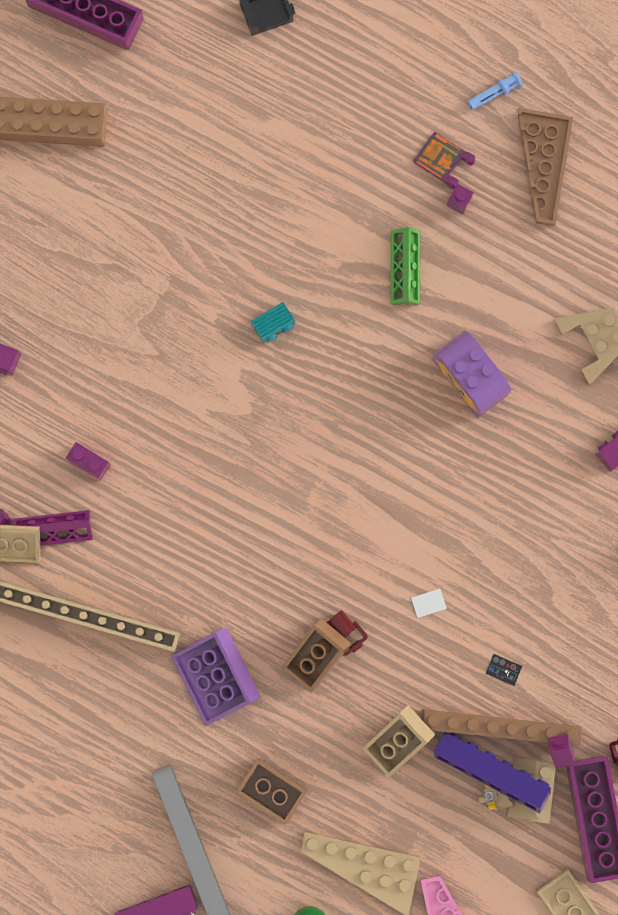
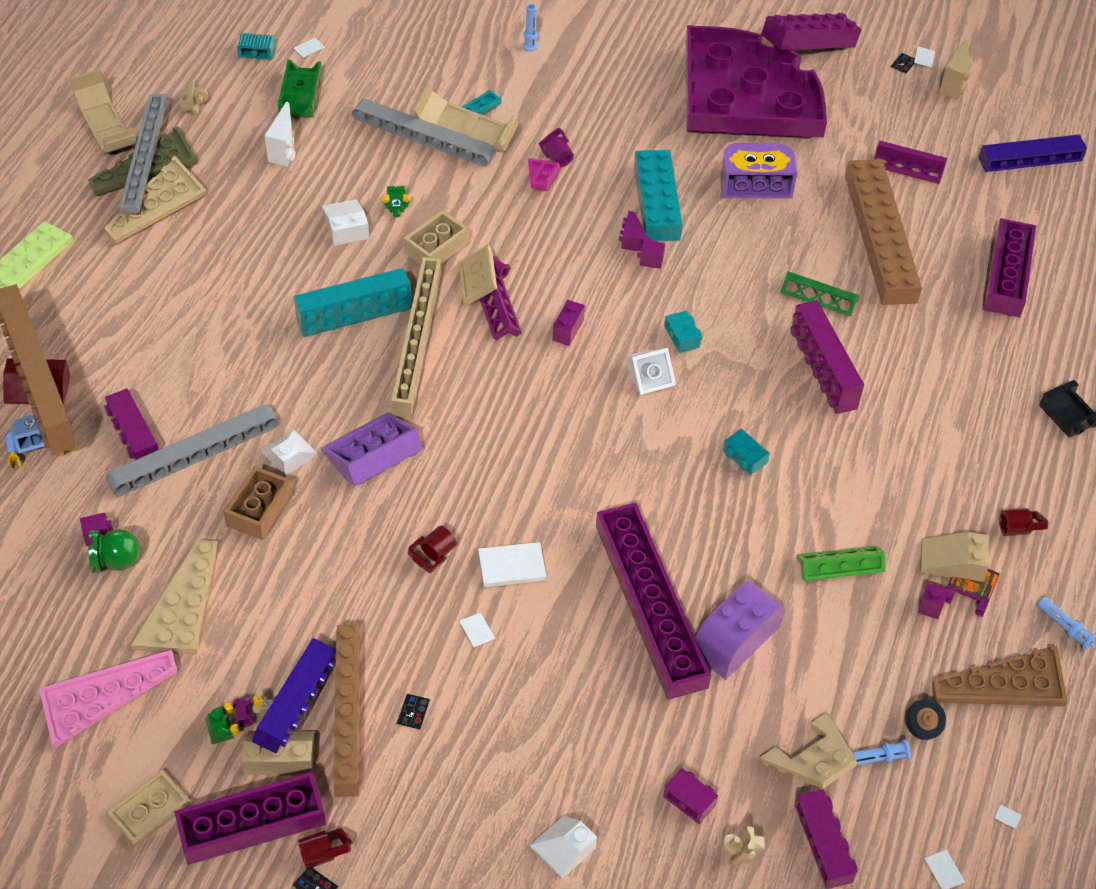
camera: 80 degrees right, 30 degrees down
(33, 676) = (353, 302): none -> teal brick
(79, 198) = (821, 287): none -> green fence
(115, 349) = (683, 331): none -> teal brick
(161, 392) = (651, 370): none -> white slope
(175, 219) = (827, 357): none -> magenta brick
(205, 756) = (289, 452): none -> white slope
(316, 655) = (404, 518): medium nougat brick -> none
(366, 561) = (512, 564): none -> white tile
(388, 97) = (1020, 522): none -> dark red piece
(398, 741) = (321, 602): tan brick -> none
(415, 165) = (956, 555): none -> tan slope
(427, 443) = (652, 601): none -> magenta brick
(491, 818) = (243, 712): none -> magenta bush
(503, 840) = (219, 725): none -> green piece
(561, 751) = (325, 759): magenta brick -> none
(574, 239) = (925, 719): none -> black wheel
(598, 279) = (885, 753): none -> light blue pin

